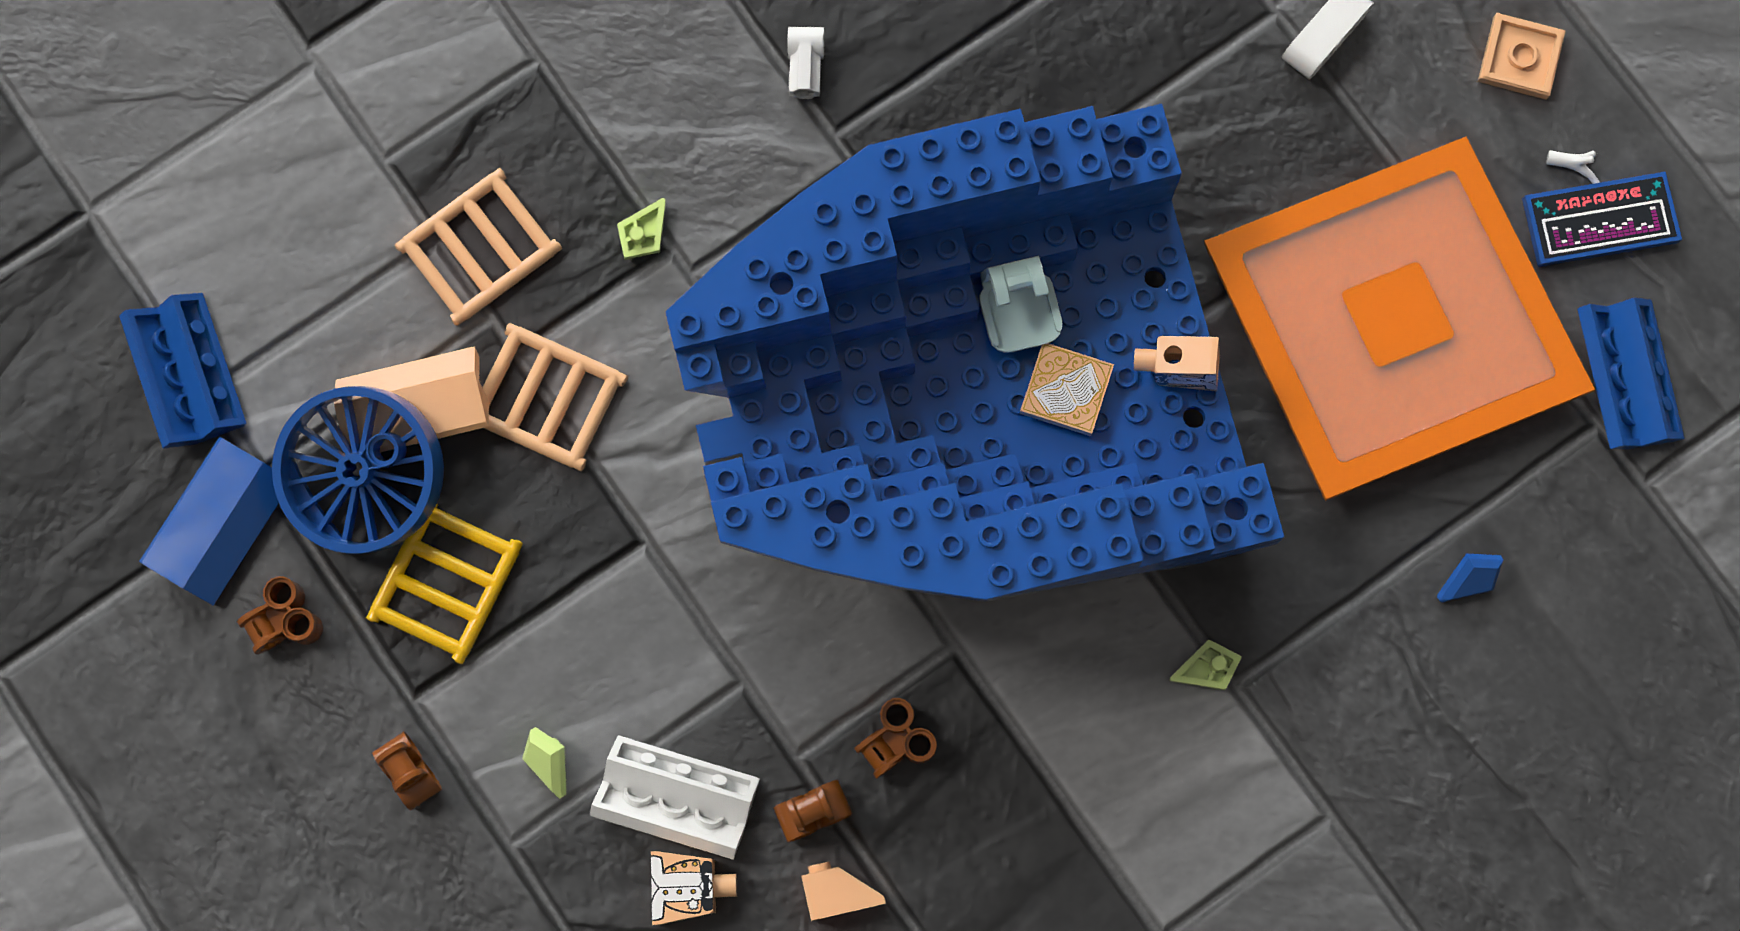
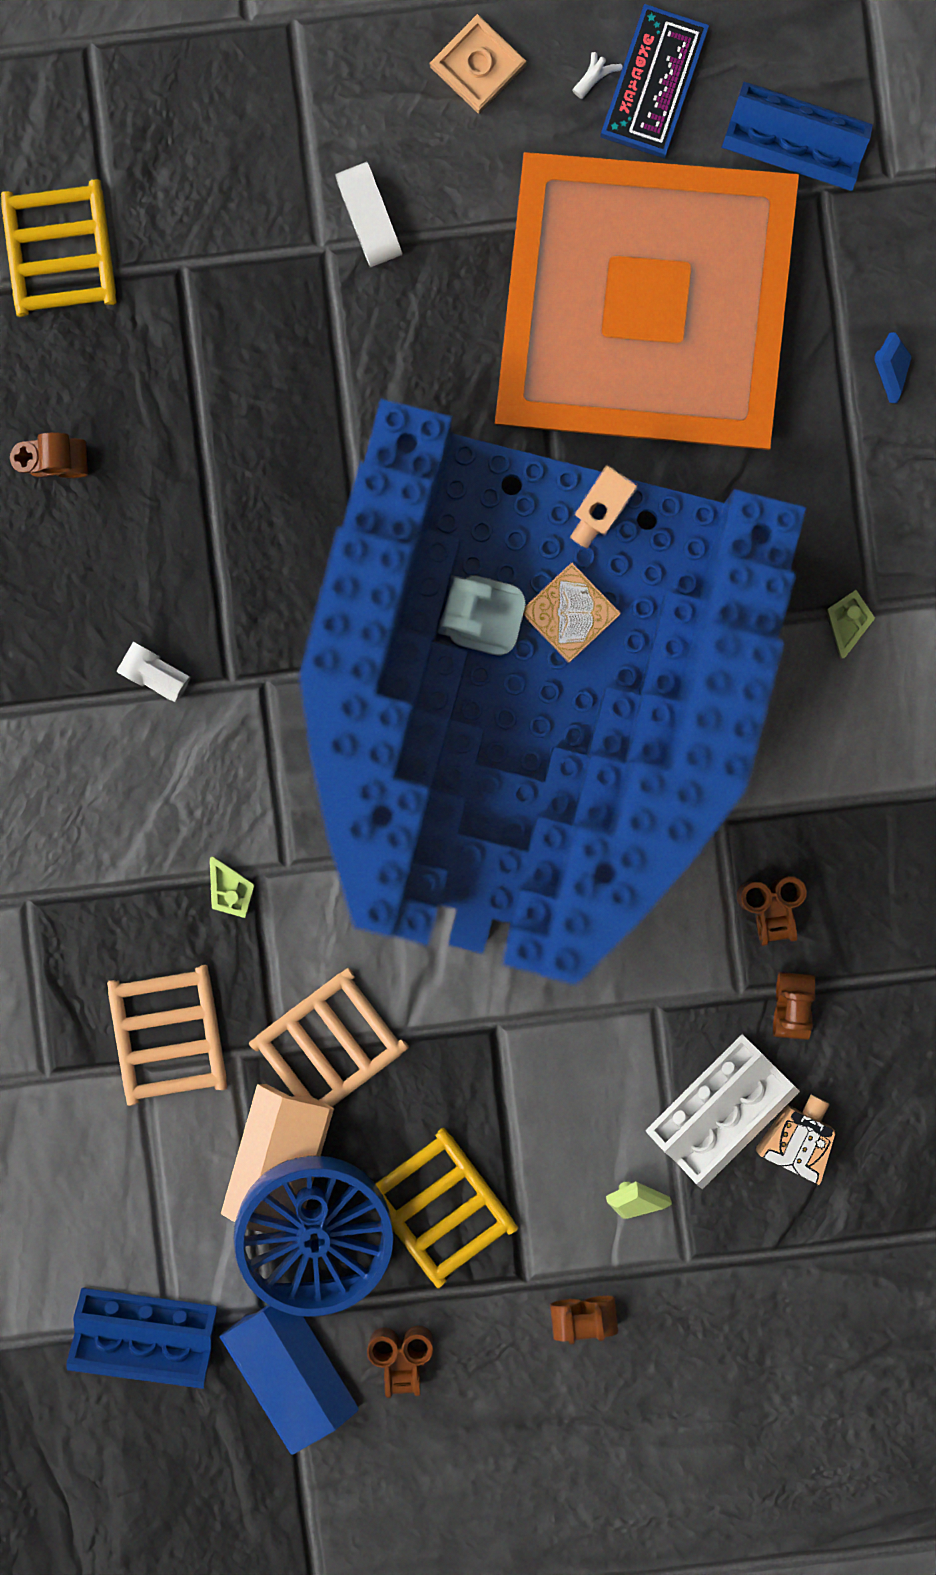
camera: 70 degrees left, 10 degrees up
(836, 892) = (870, 1020): light nougat slope -> none

